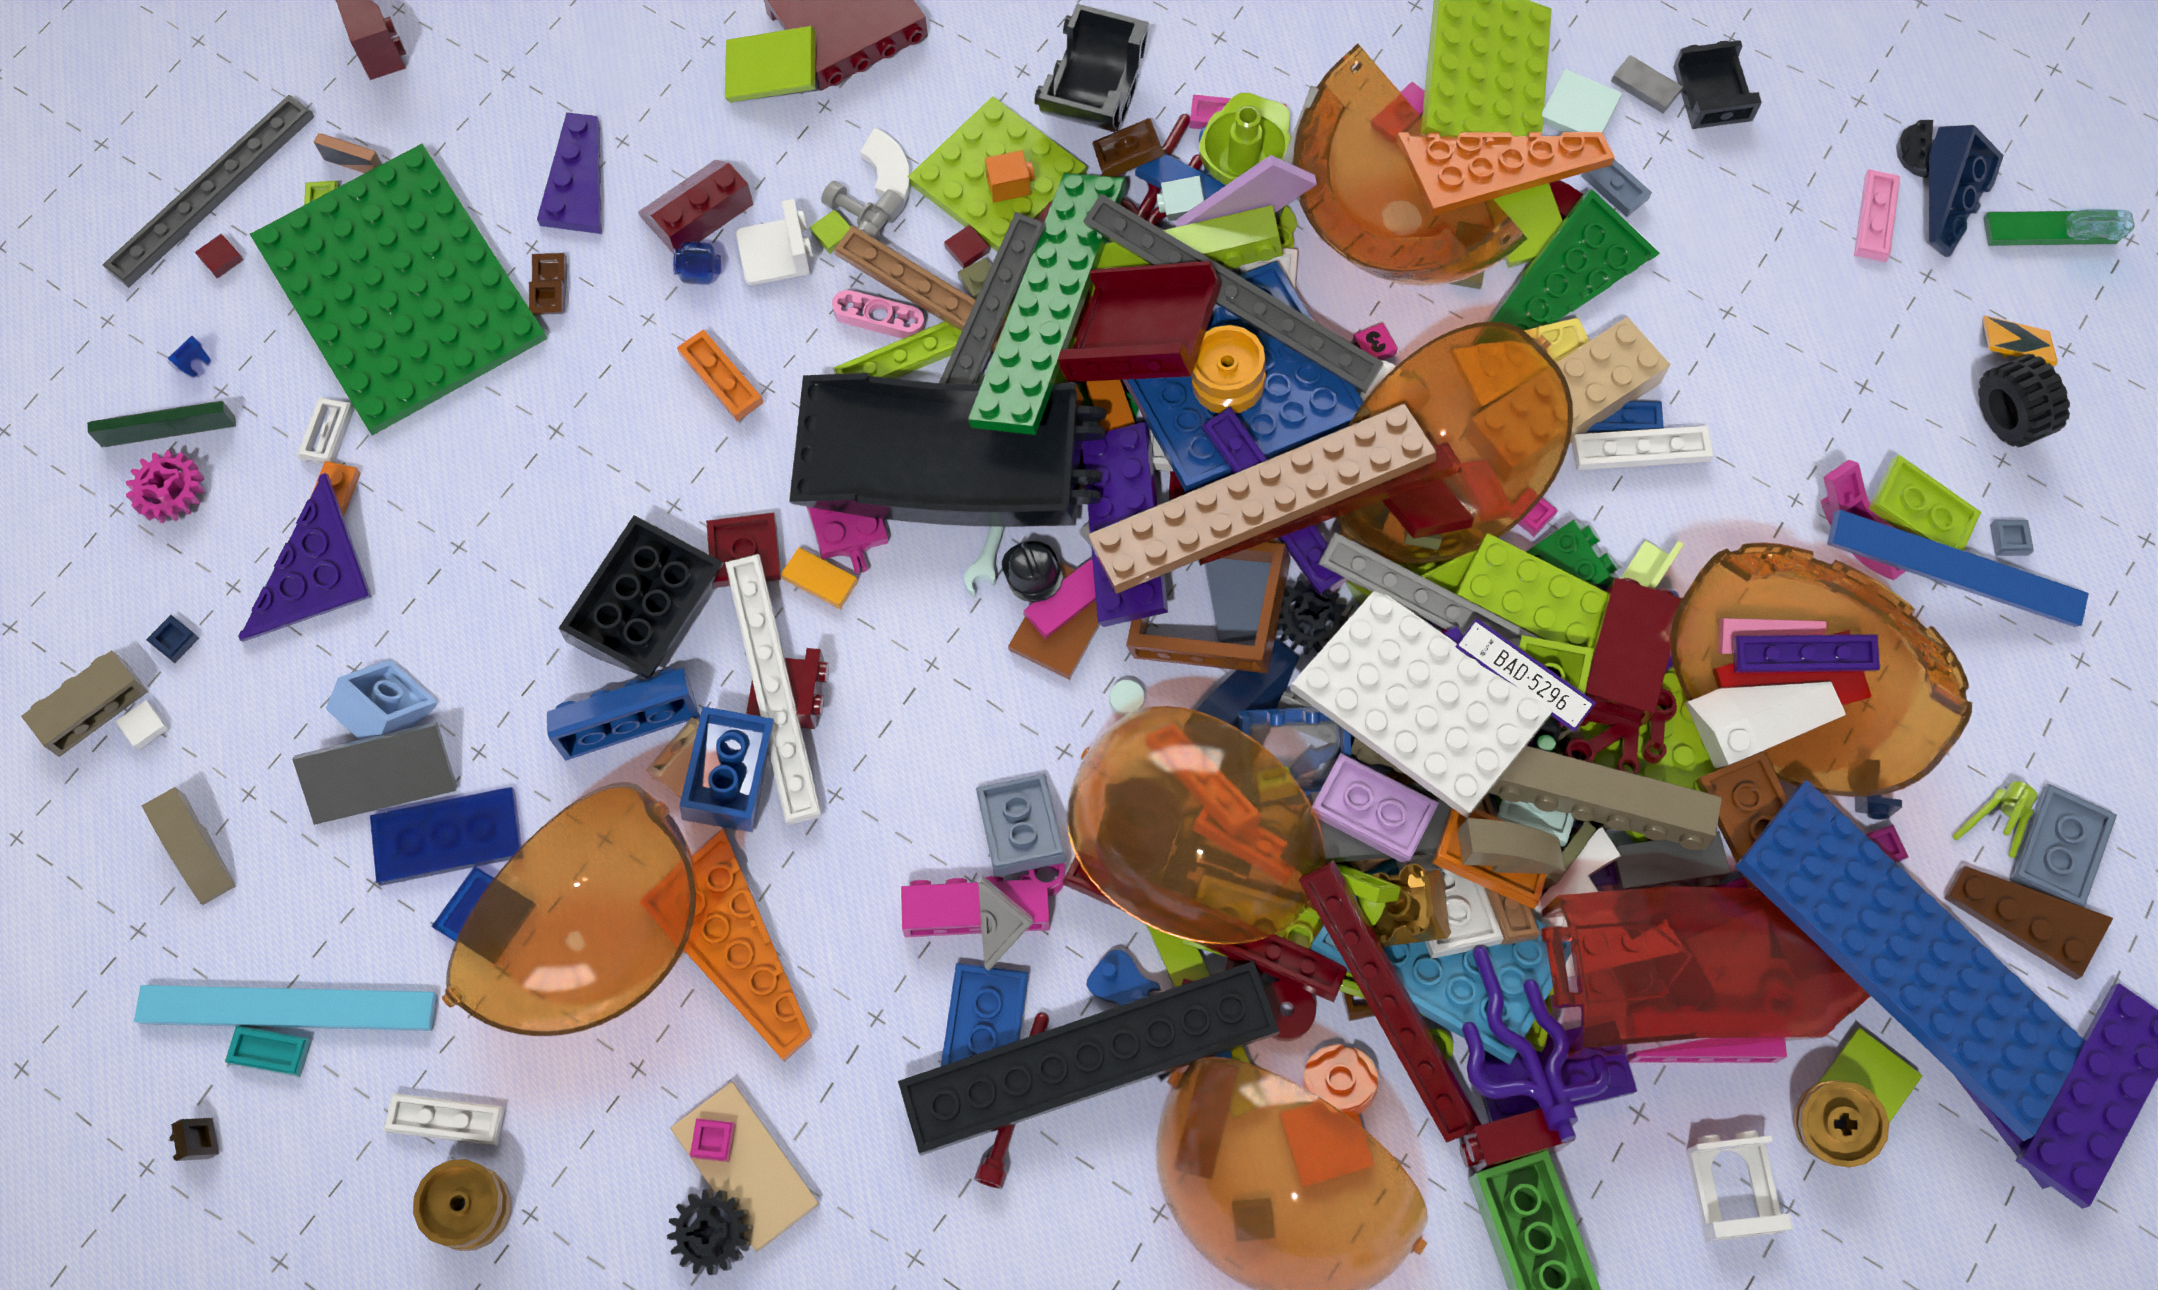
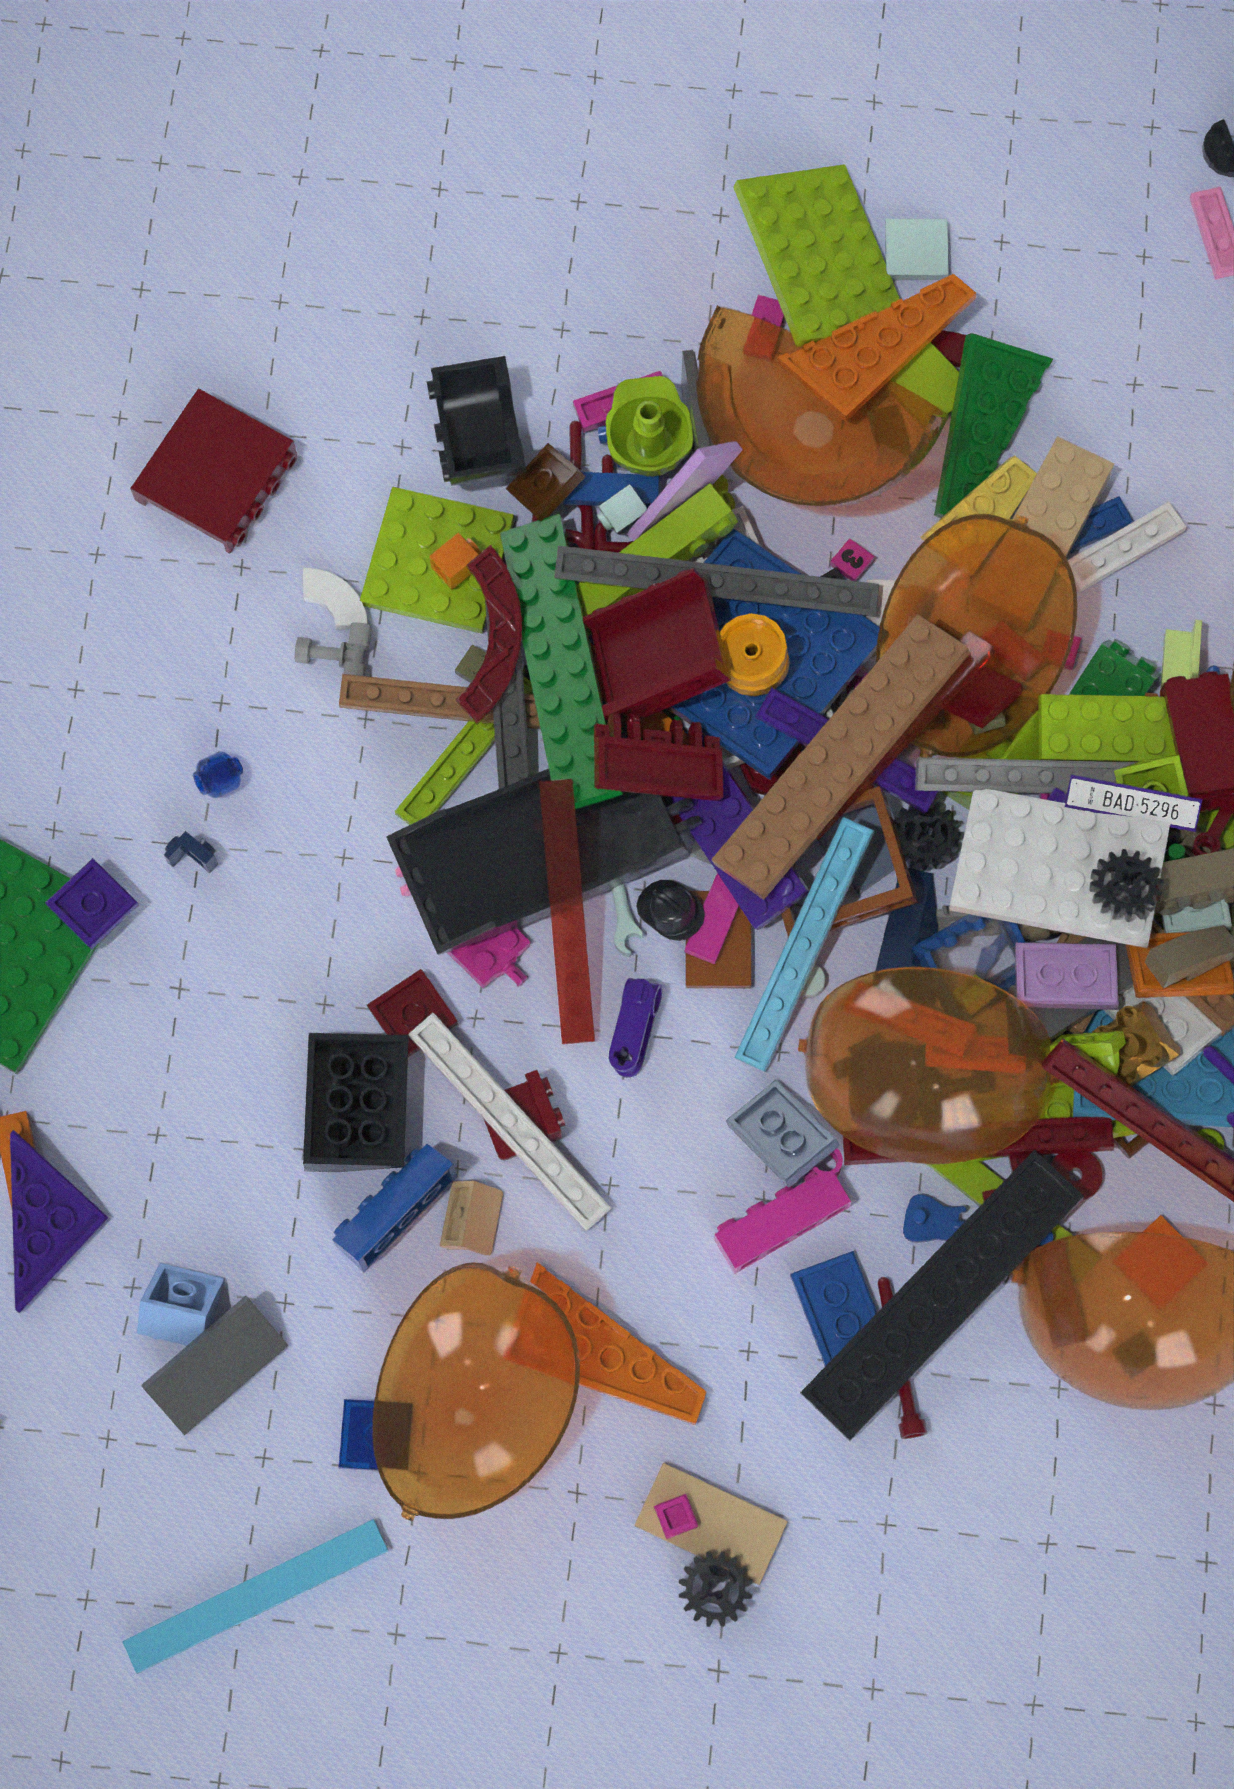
camera: 25 degrees left, 5 degrees up
(188, 845) = (90, 1507): dark tan slope -> none
(194, 1139) = (249, 1738): dark brown tile -> none
(268, 1051) = (262, 1638): teal tile -> none
(439, 1202) = (490, 1657): pearl gold wheel -> none
(444, 1119) = (444, 1615): white tile -> none
(445, 836) = (302, 1387): clear blue tile -> none
(519, 318) = (92, 903): none -> dark purple tile
(548, 283) = (87, 845): reddish brown slope -> none
(574, 179) = (57, 751): dark purple wing -> none
(629, 308) = (199, 851): none -> dark blue bracket
(698, 205) = (184, 719): dark red slope -> none
(720, 375) = (299, 867): orange plate -> none
(726, 769) = (514, 1210): blue slope -> none
(770, 64) = (176, 553): lime tile -> none
(775, 248) = (280, 725): white bracket -> none
(819, 578) = (490, 1006): light orange tile -> none
(829, 230) = (320, 685): lime tile -> none
(871, 303) = (395, 734): bright pink beam -> none
(929, 519) = (566, 911): none -> clear red tile
(938, 658) = (634, 1025): none -> dark purple piece
(966, 246) = (448, 641): dark red tile -> none
(1000, 922) = (813, 1221): light grey tile -> none
(1009, 258) = (504, 635): none -> dark red tile
(1082, 420) = (657, 762): none -> dark red hinge
(1136, 658) = (804, 944): none -> medium azure tile
(1342, 1078) = (1148, 1207): orange tile -> none
(1471, 746) = (1121, 898): none -> black gear
(1618, 187) = (990, 313): sand blue plate -> none
(1646, 84) = (963, 199): flat silver tile -> none
(1715, 85) = (1023, 173): black panel -> none

